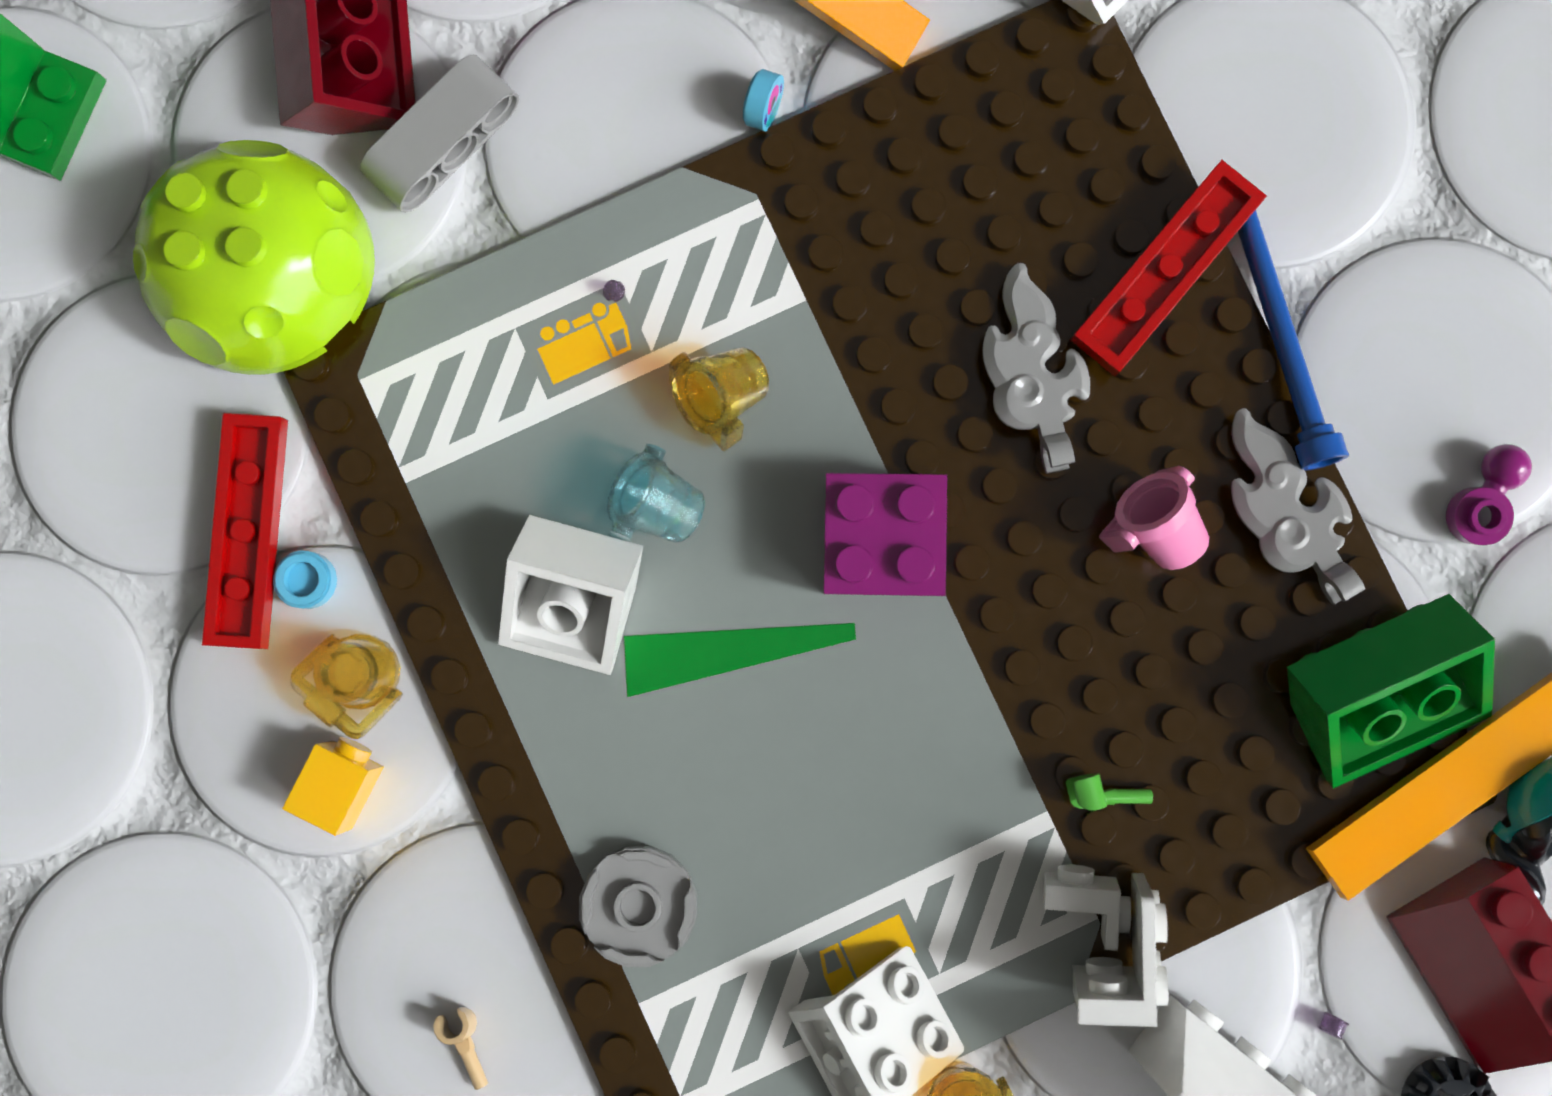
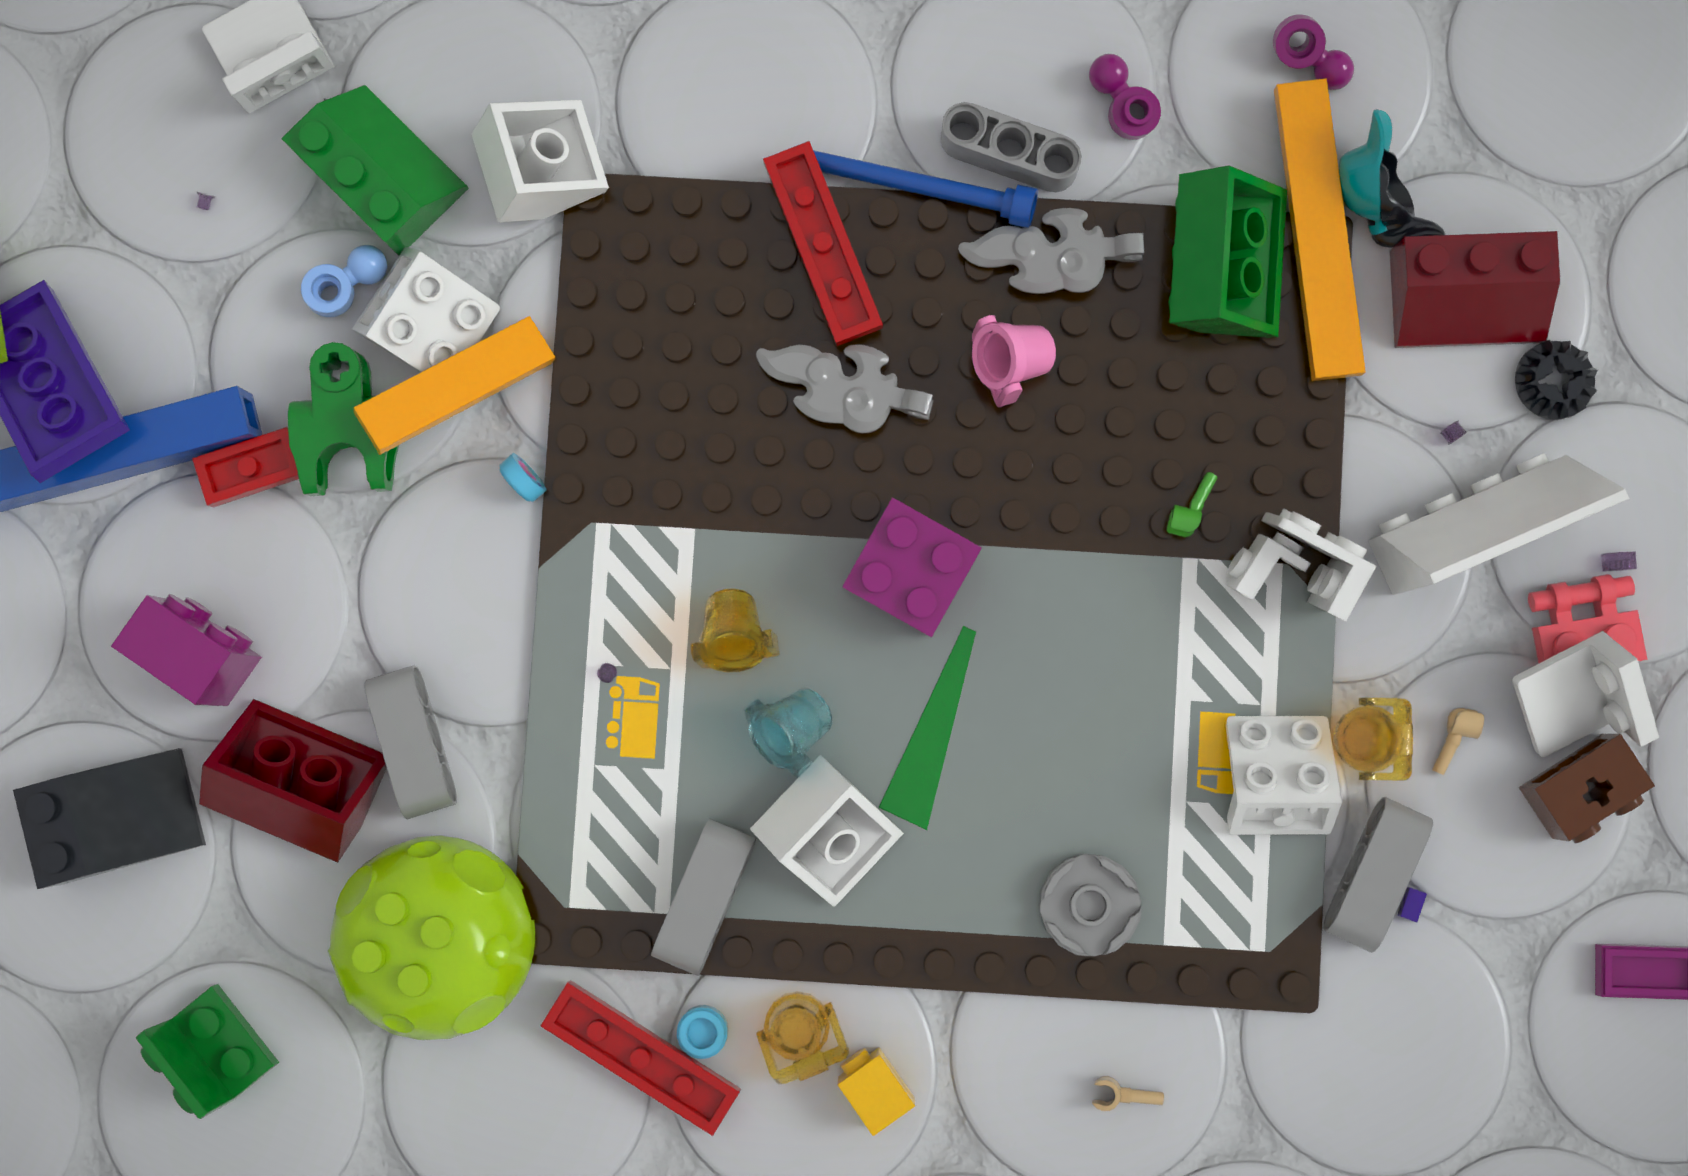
camera: 50 degrees left, 0 degrees up
(436, 505) = (703, 897): none -> light grey beam
(1388, 383) = (992, 129): none -> light grey beam

